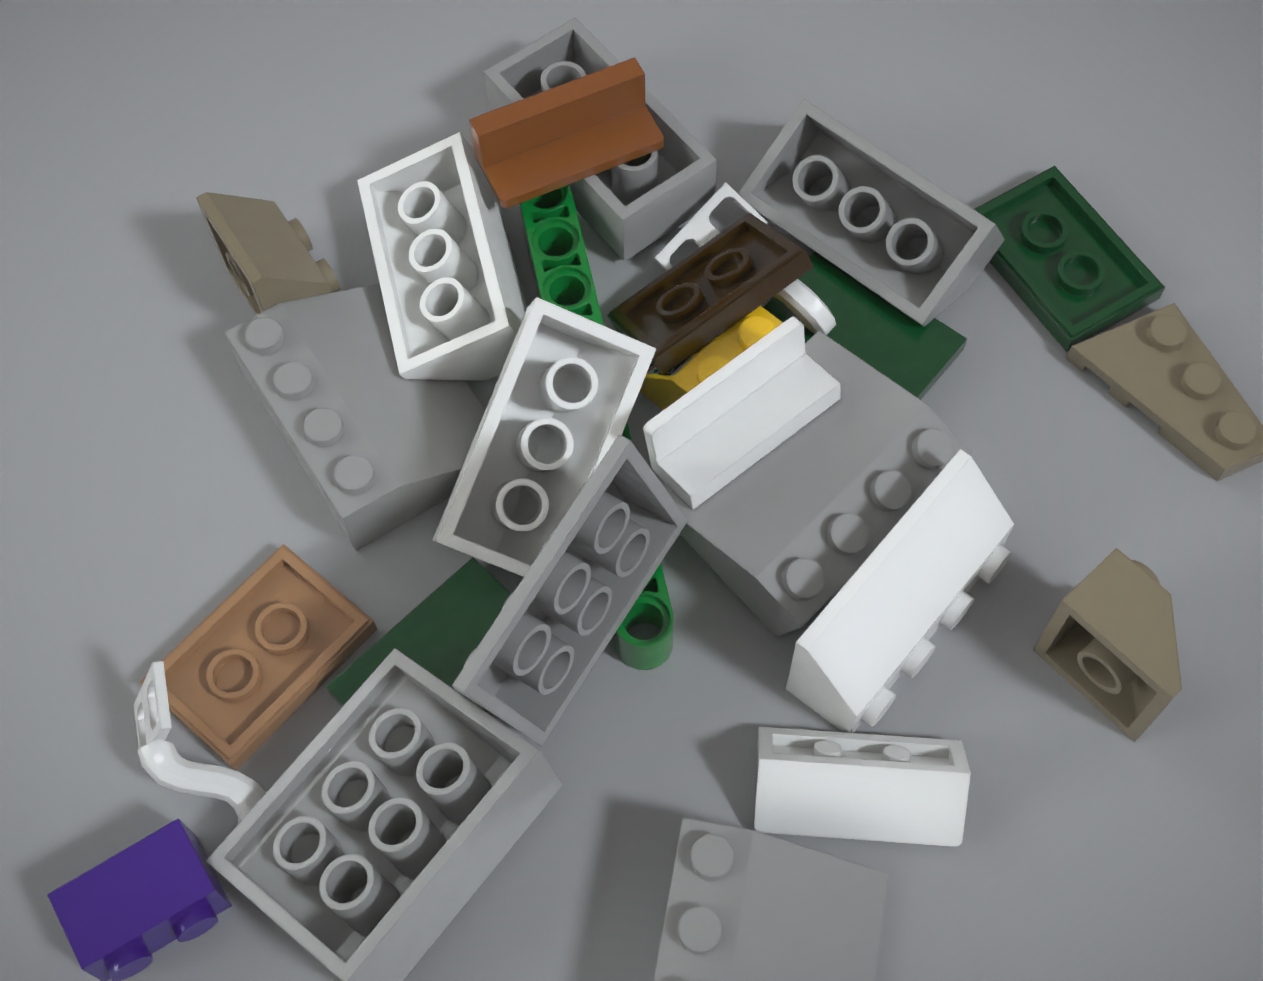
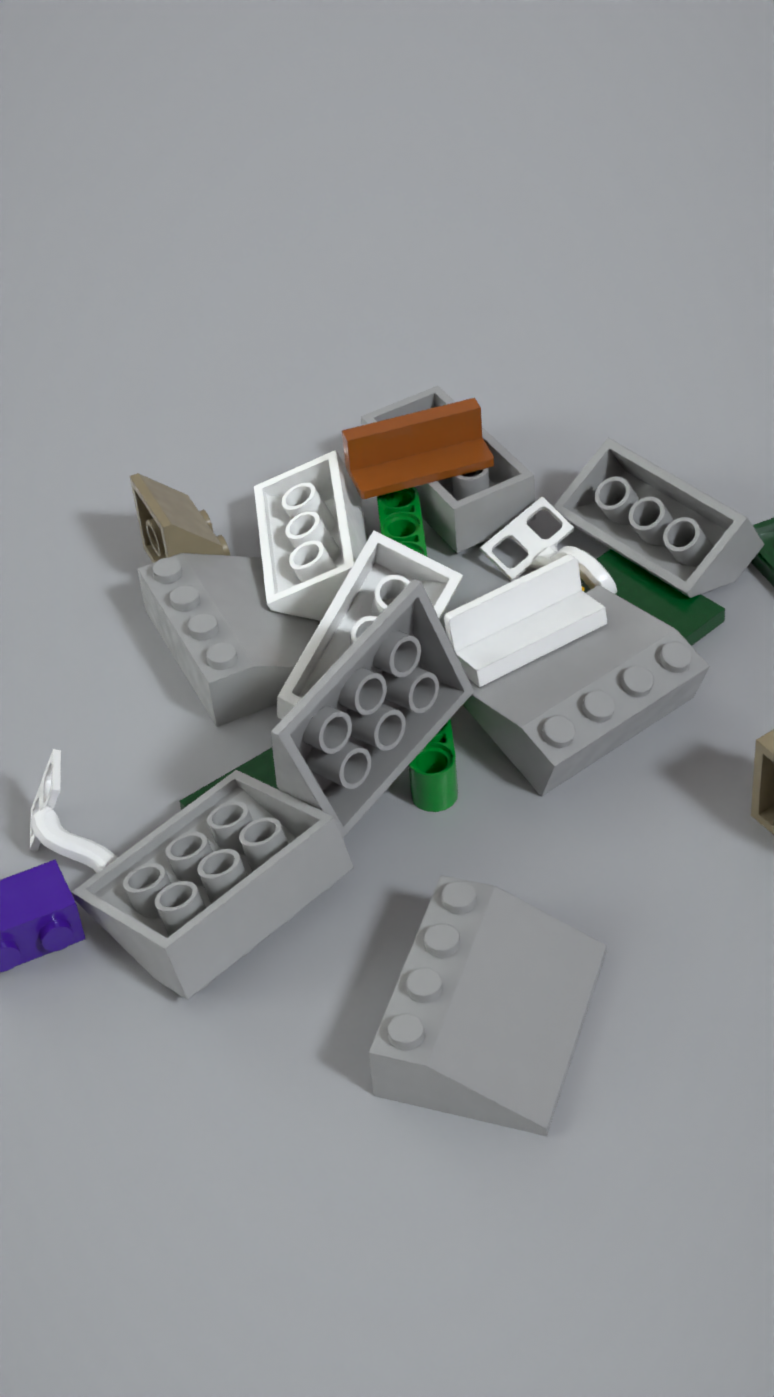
camera: 10 degrees right, 20 degrees down
(261, 656) = (134, 783): medium nougat tile -> none
(710, 290) = (522, 556): dark brown tile -> none
(861, 786) = (594, 887): white panel -> none
(902, 598) = (637, 756): white slope -> none

